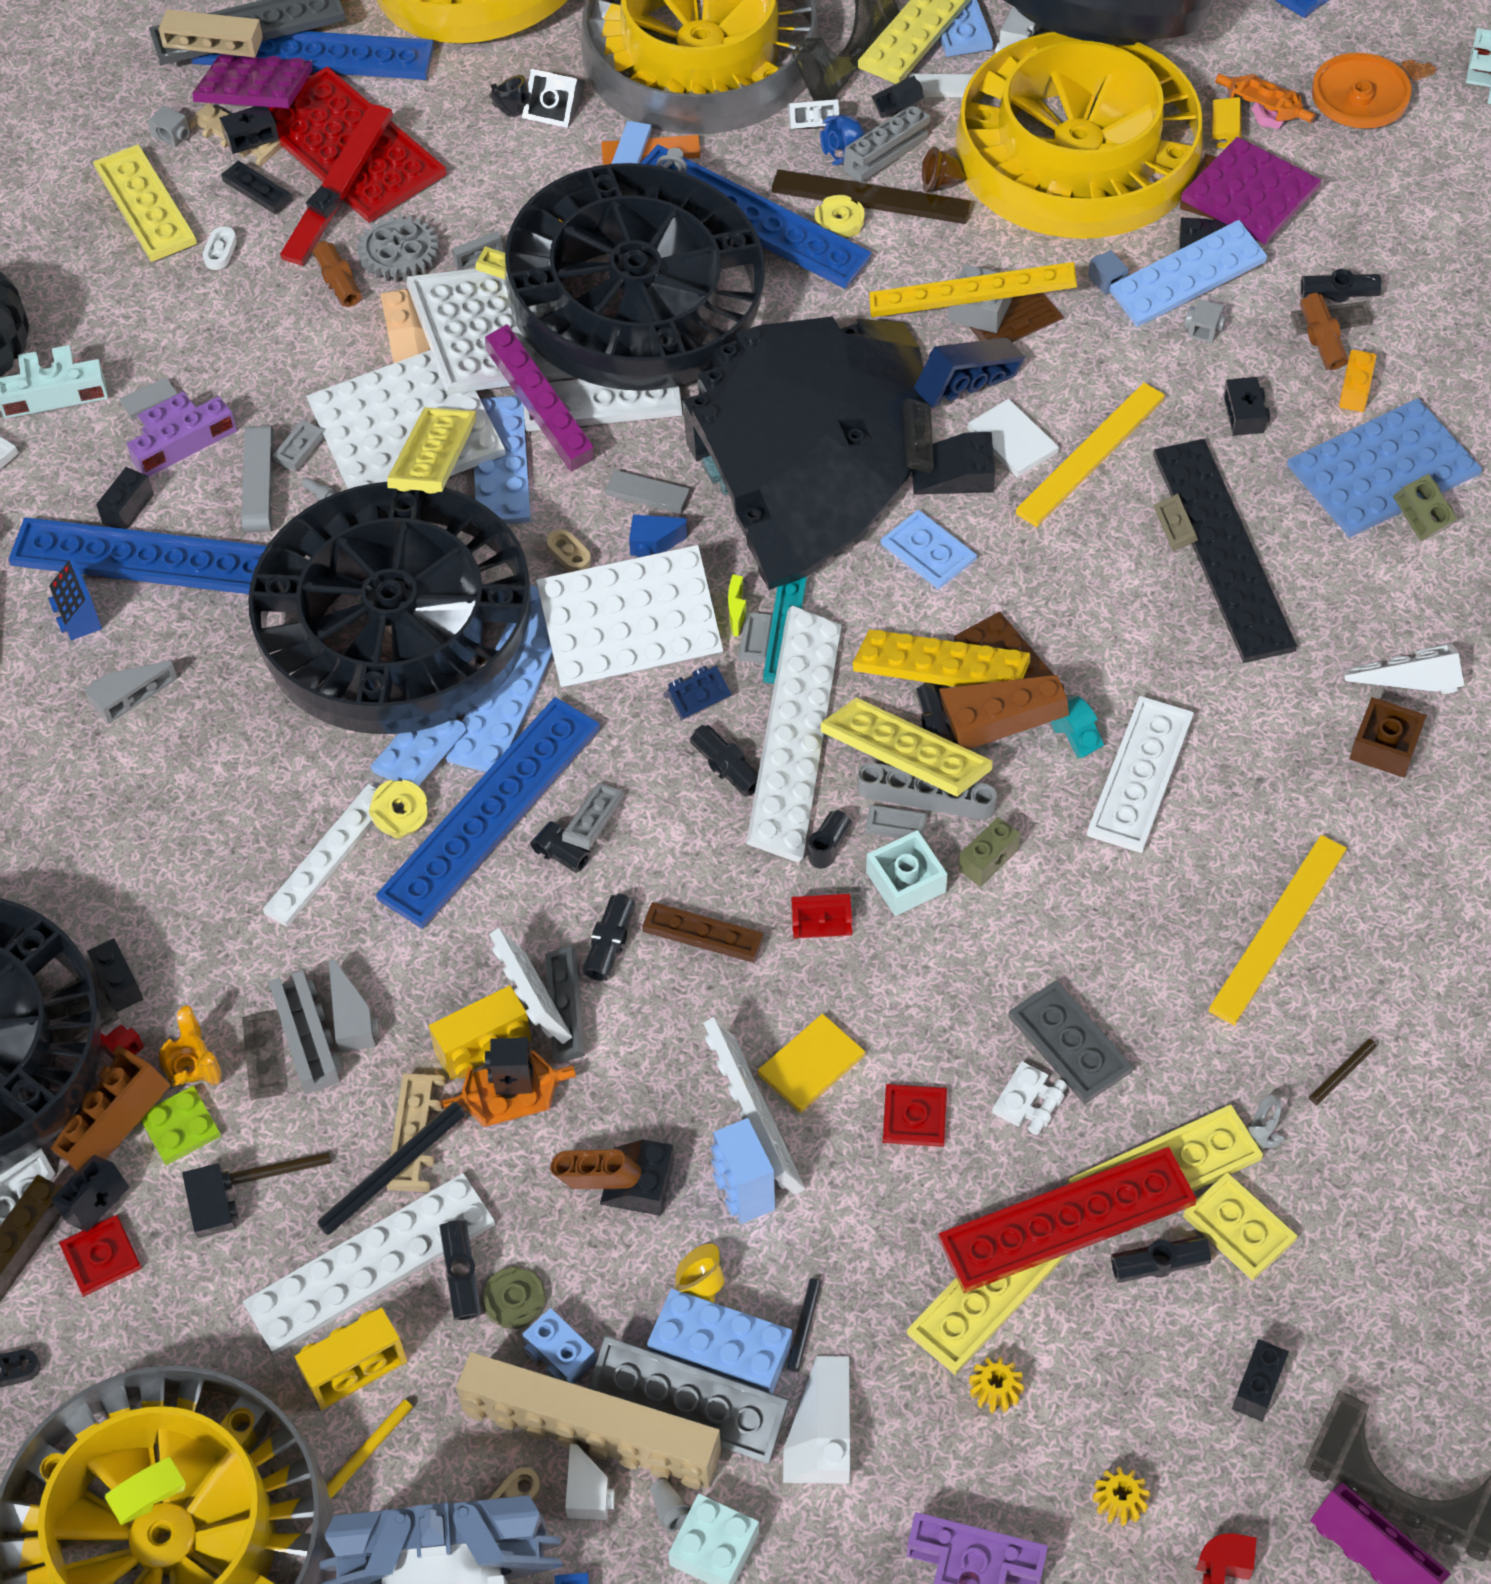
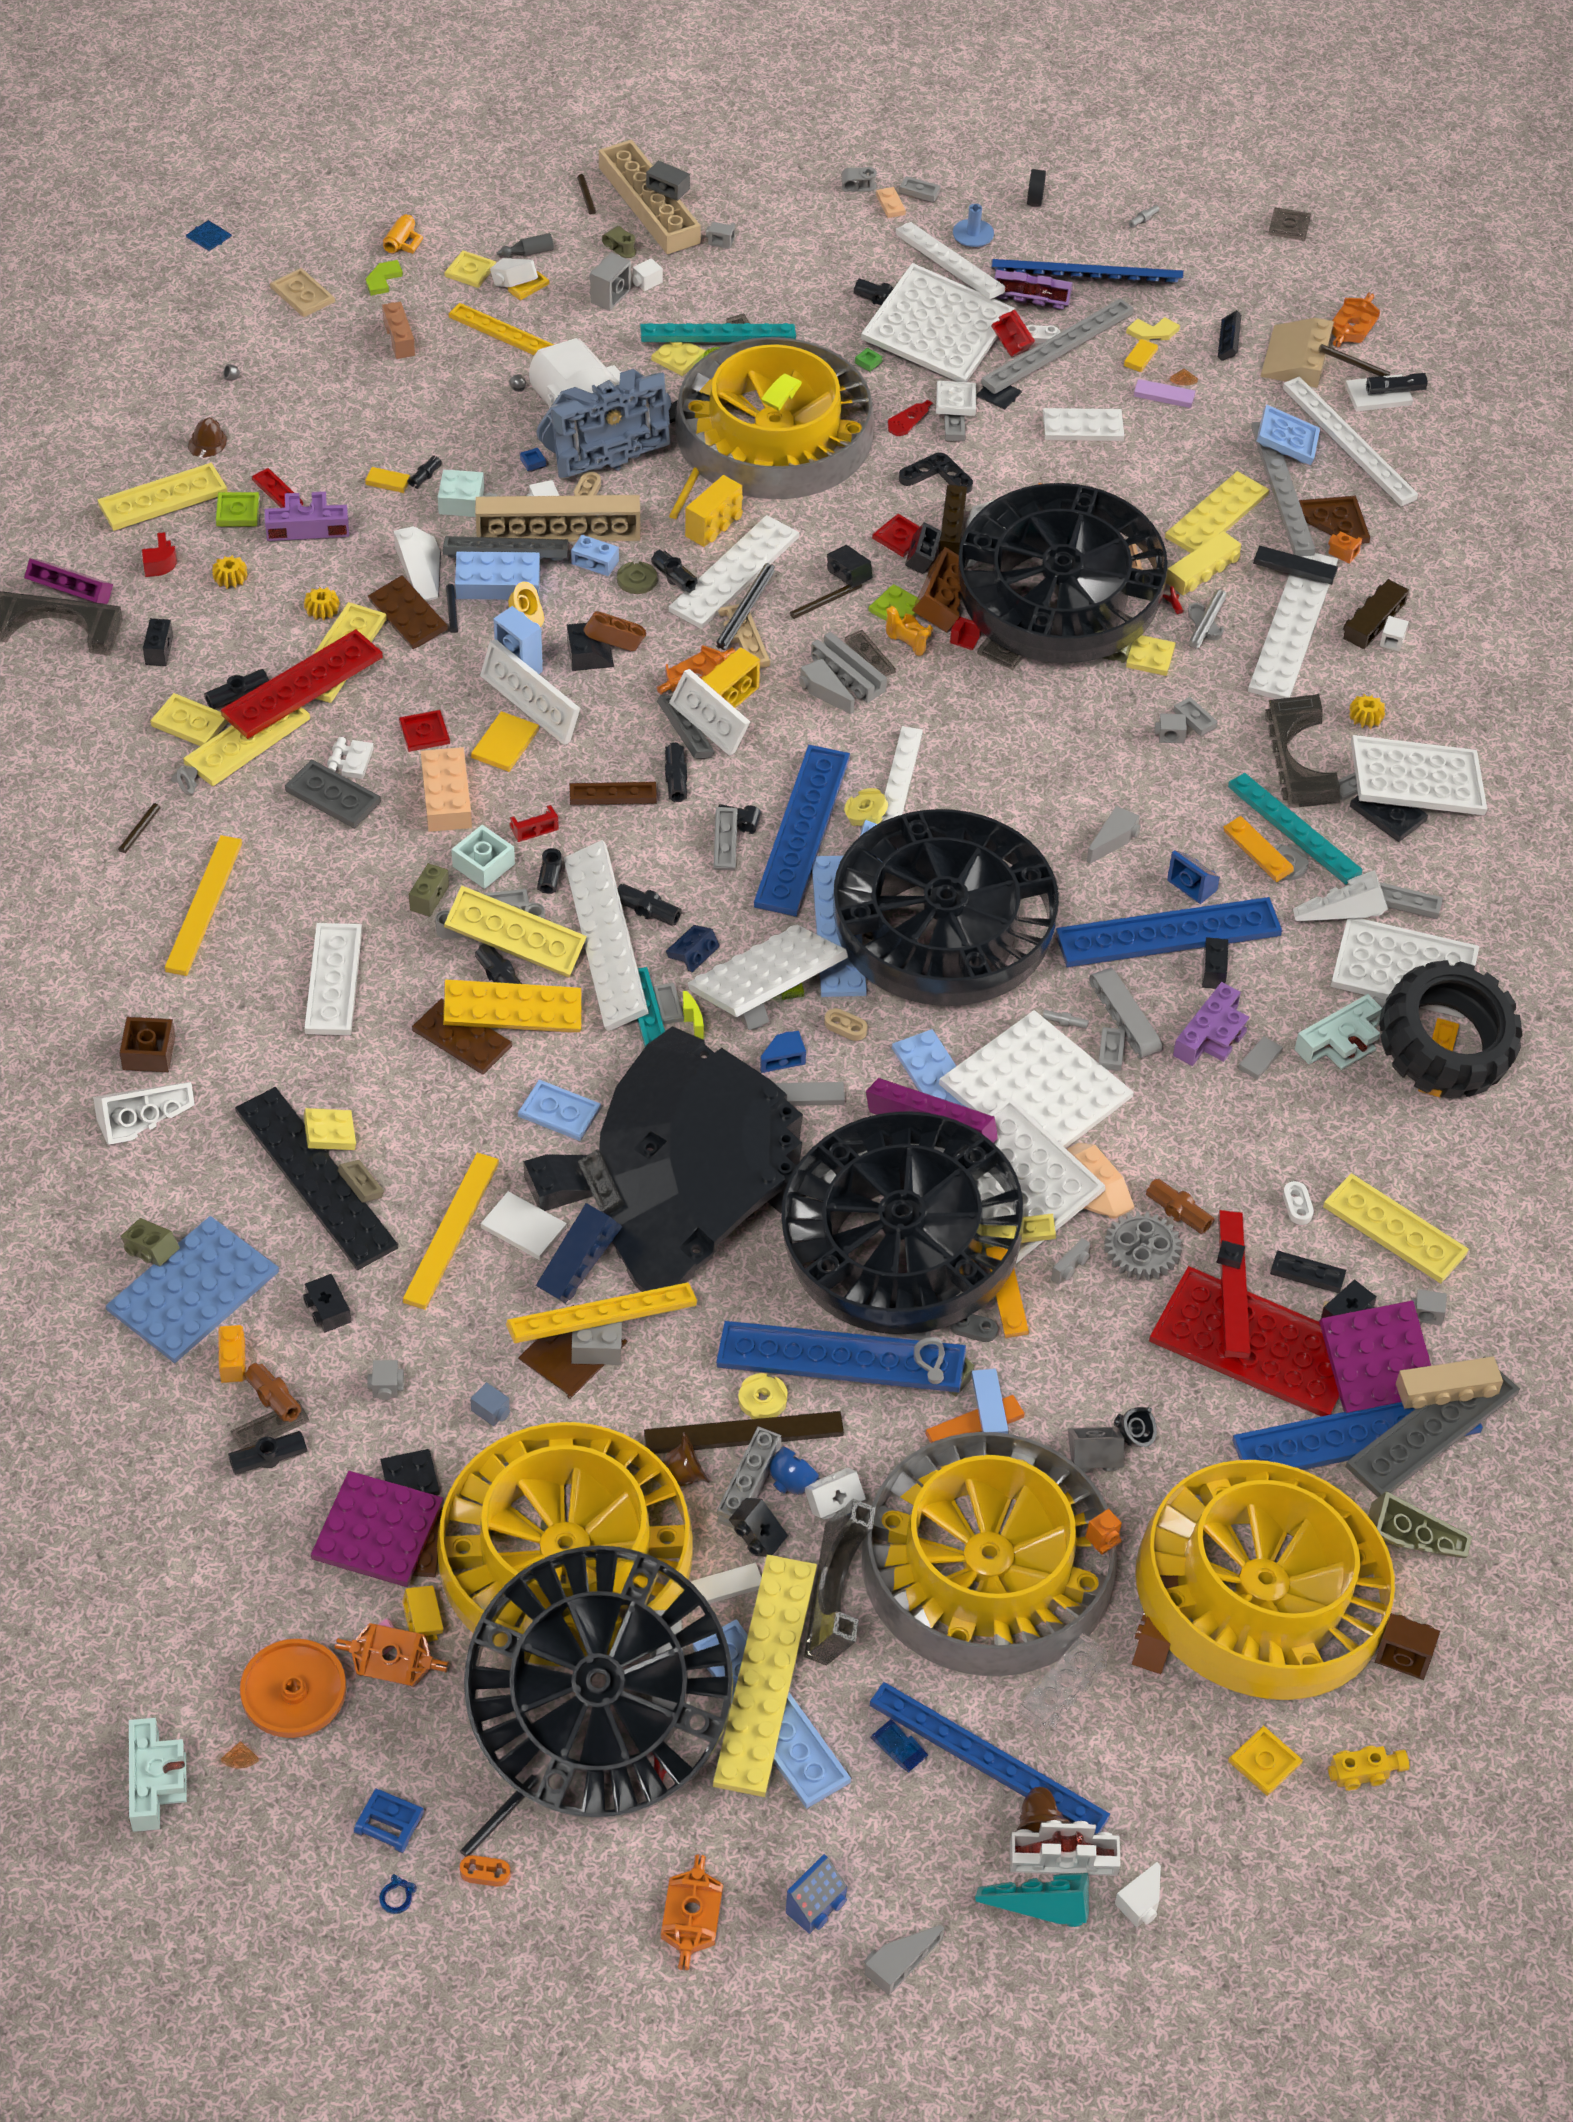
camera: 155 degrees right, 5 degrees down
(115, 975) = (992, 663): black brick -> none
(431, 450) = (983, 1020): light yellow plate -> none
(510, 1065) = (696, 656): black brick -> none
(872, 1332) = (408, 612): none -> reddish brown plate
(918, 995) = (446, 789): none -> light nougat brick
(1002, 708) = (450, 959): dark orange wedge -> none
(1079, 727) = (397, 993): teal brick -> none
(1188, 273) = (412, 1424): light blue plate -> none
(1195, 586) = (329, 1129): none -> light yellow plate

